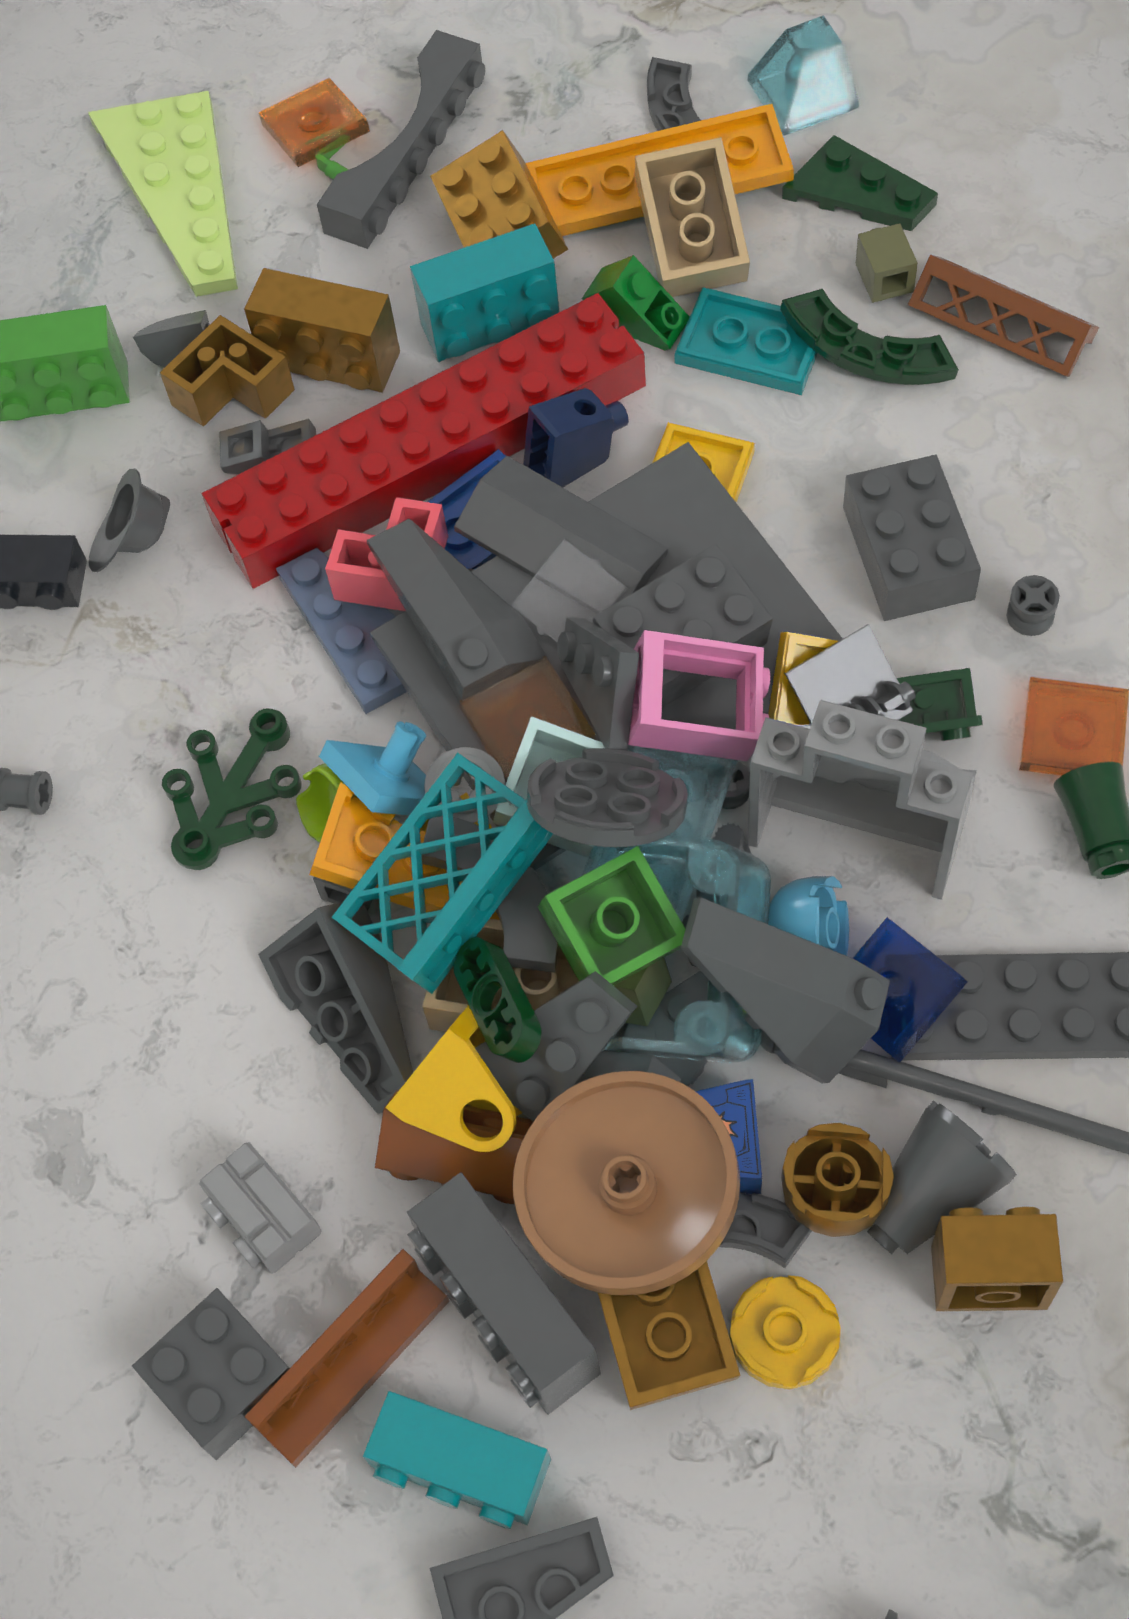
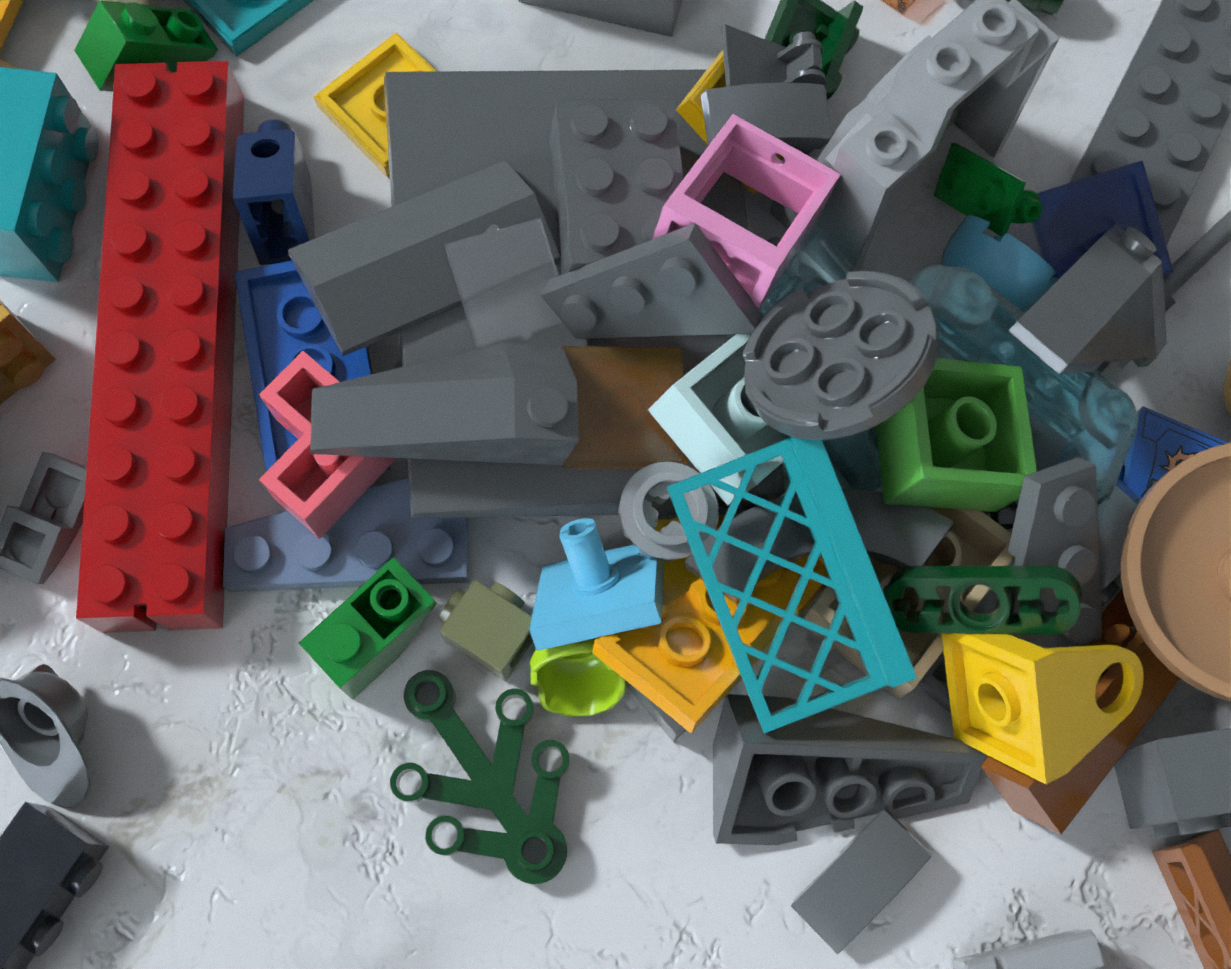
camera: 70 degrees left, 10 degrees up
(281, 1059) = (861, 880): none -> dark grey slope
(285, 661) = (369, 628): none -> green slope
(329, 720) = (487, 627): none -> olive brick
(801, 679) = (785, 110): none -> dark grey slope
(875, 889) = (986, 191): none -> green hinge

